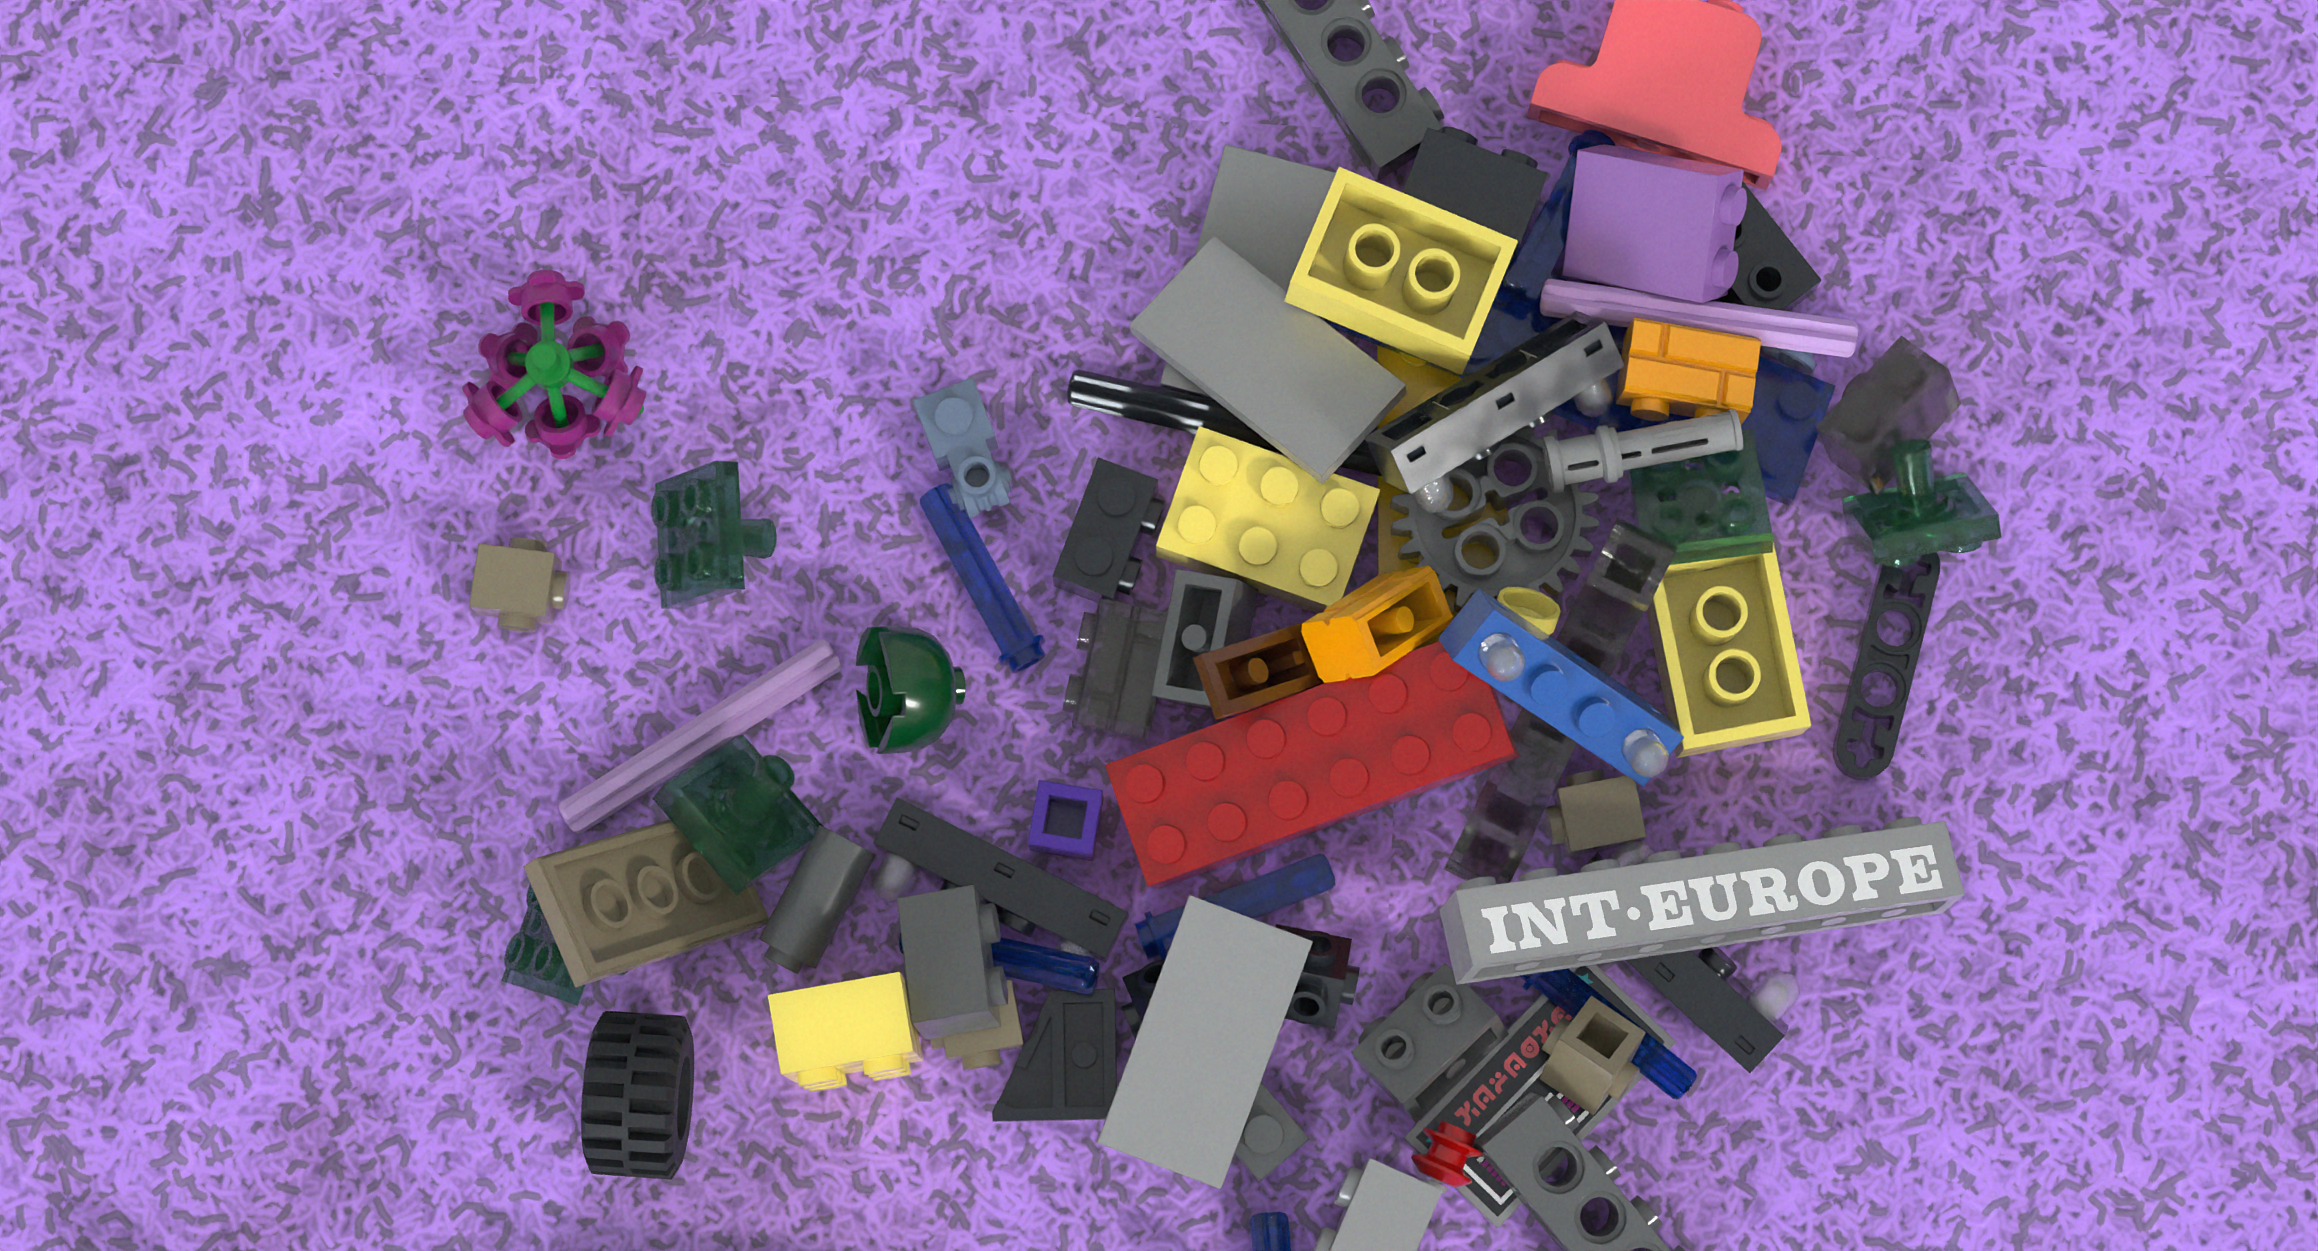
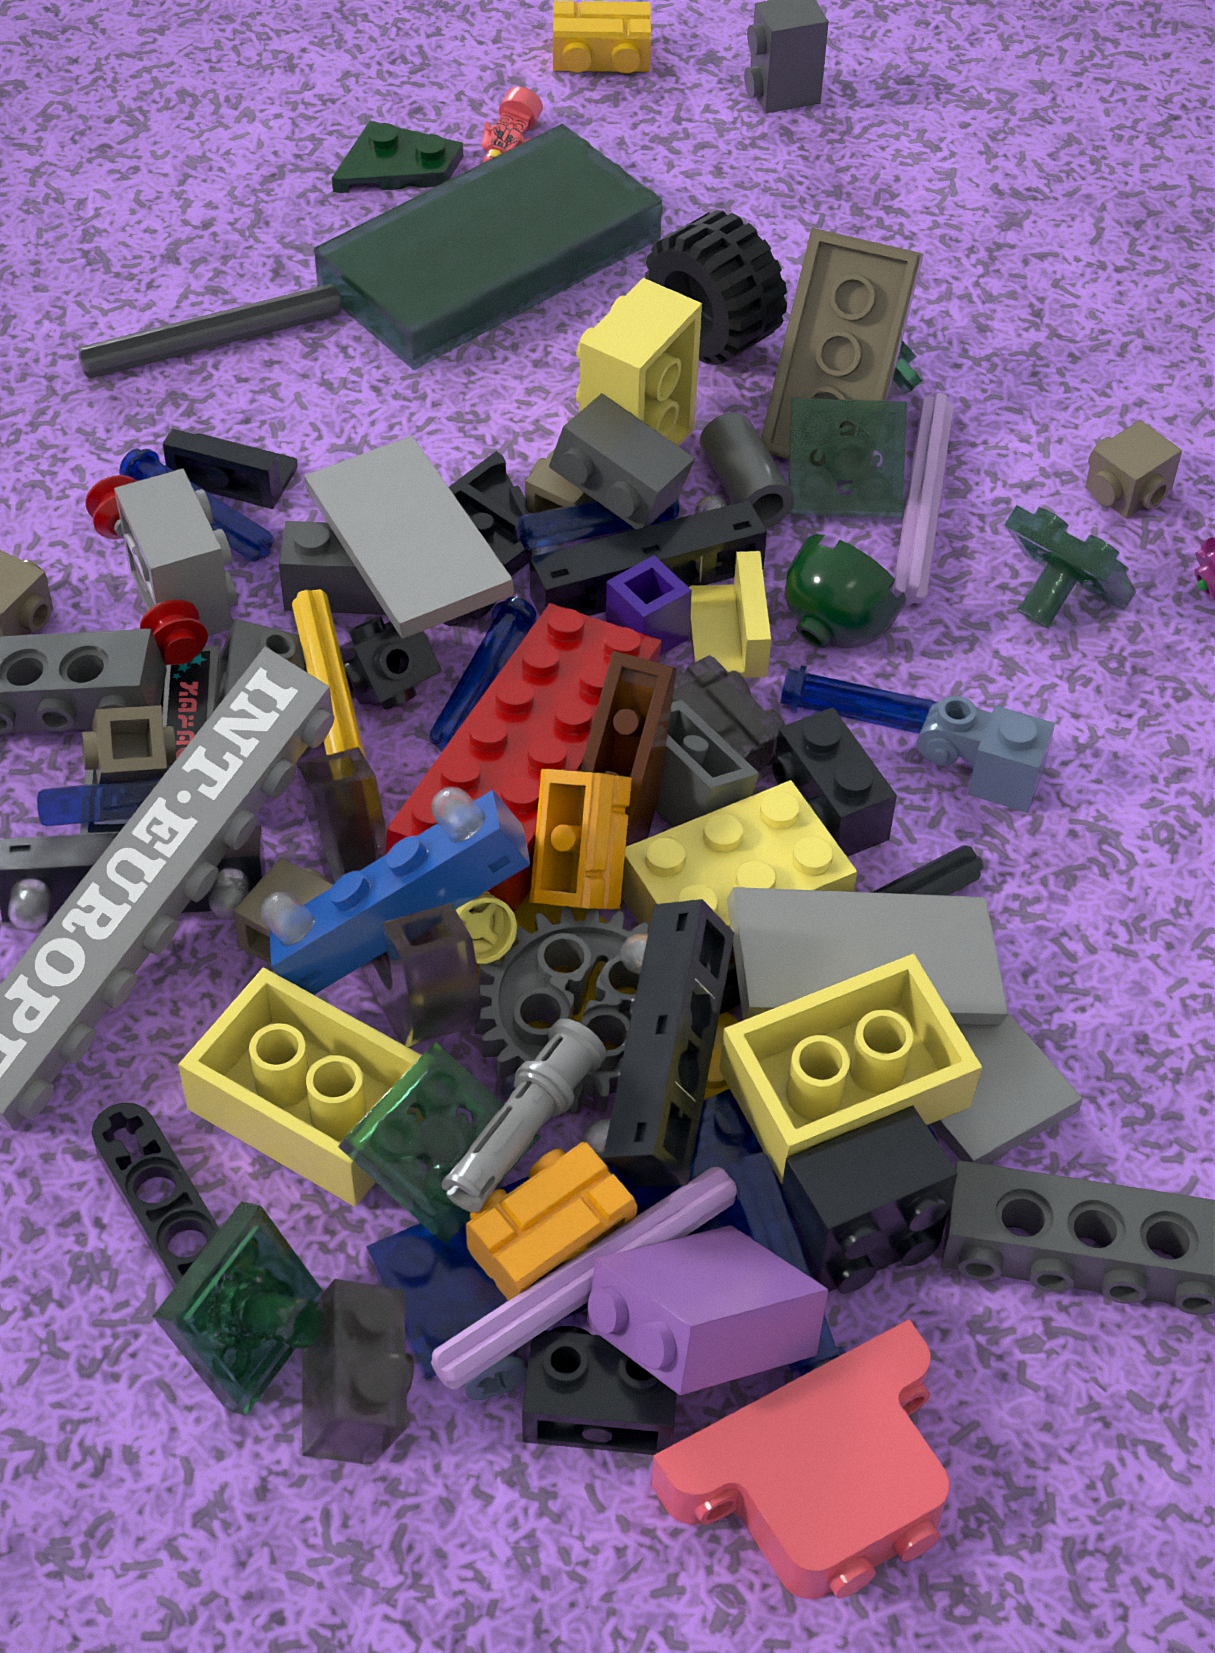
camera: 130 degrees right, 30 degrees down
(998, 767) = (734, 620): none -> light yellow panel
(1386, 973) = (326, 664): none -> yellow axle

